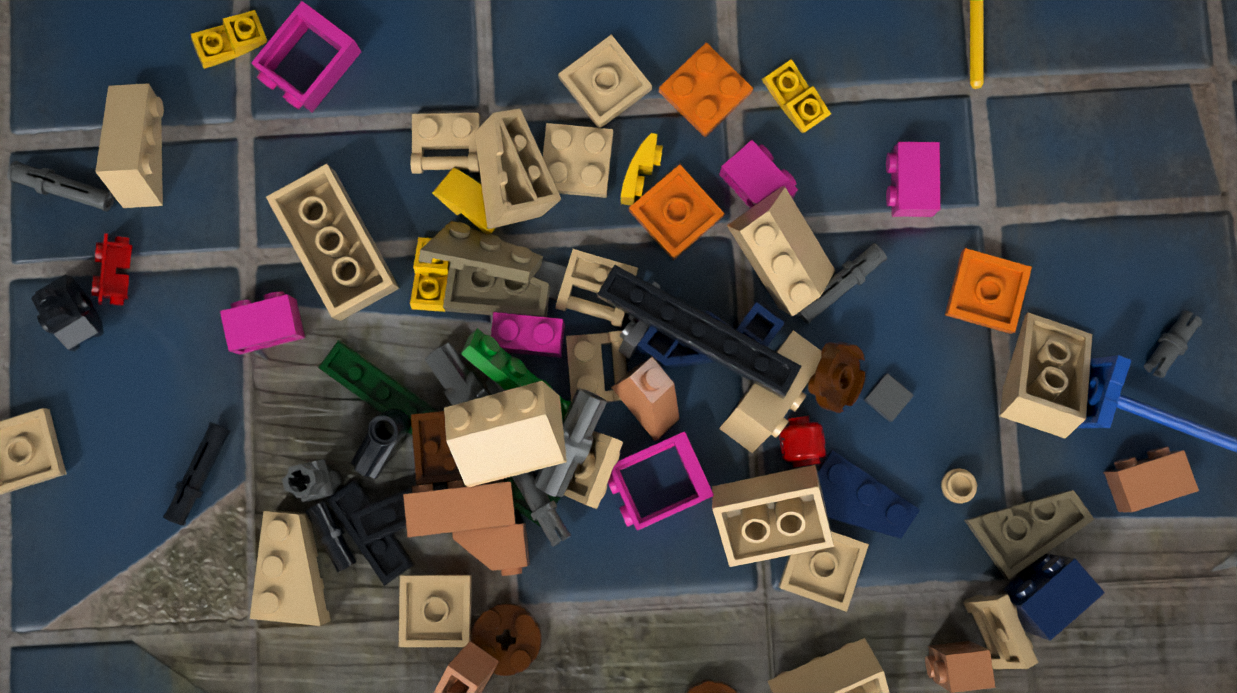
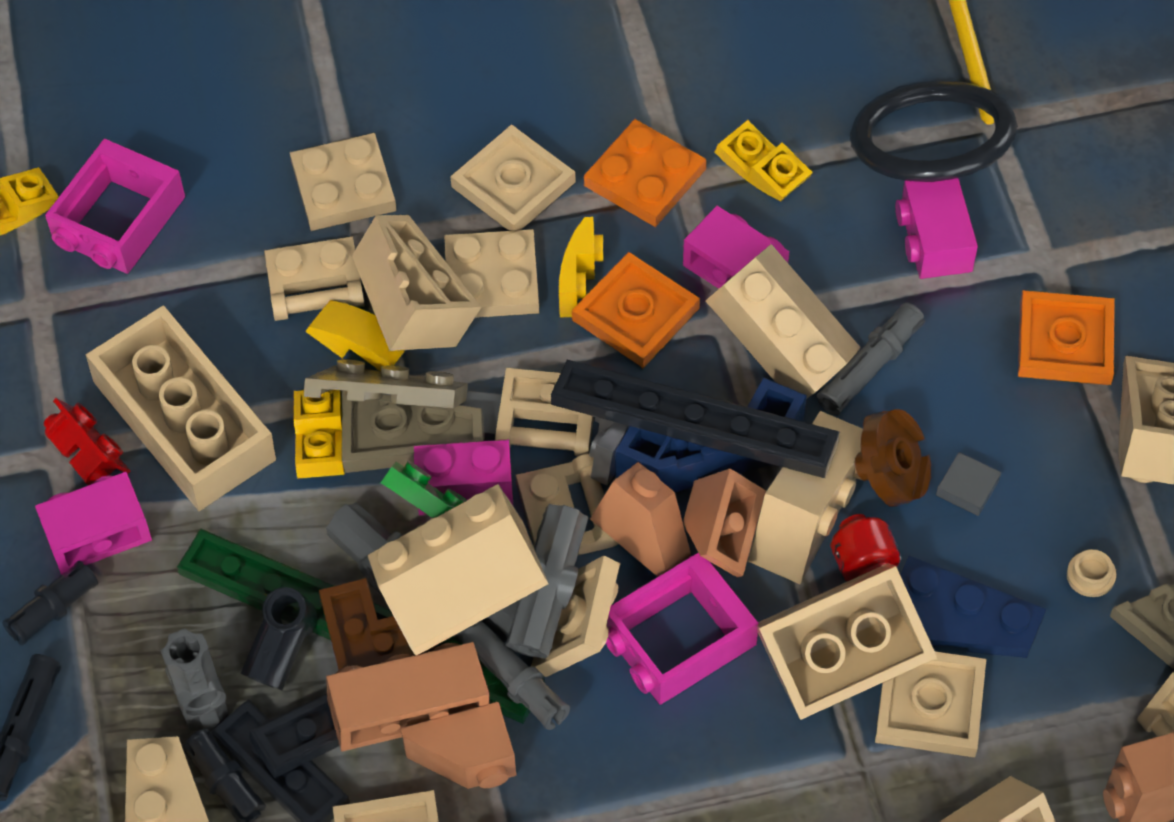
camera: 15 degrees left, 25 degrees down
(227, 381) = (50, 602): none -> black pin
(259, 242) = (75, 430): none -> red hinge
(478, 59) = (343, 181): none -> tan plate
(704, 408) = (724, 518): none -> nougat slope
(931, 141) = (940, 169): none -> black wedge

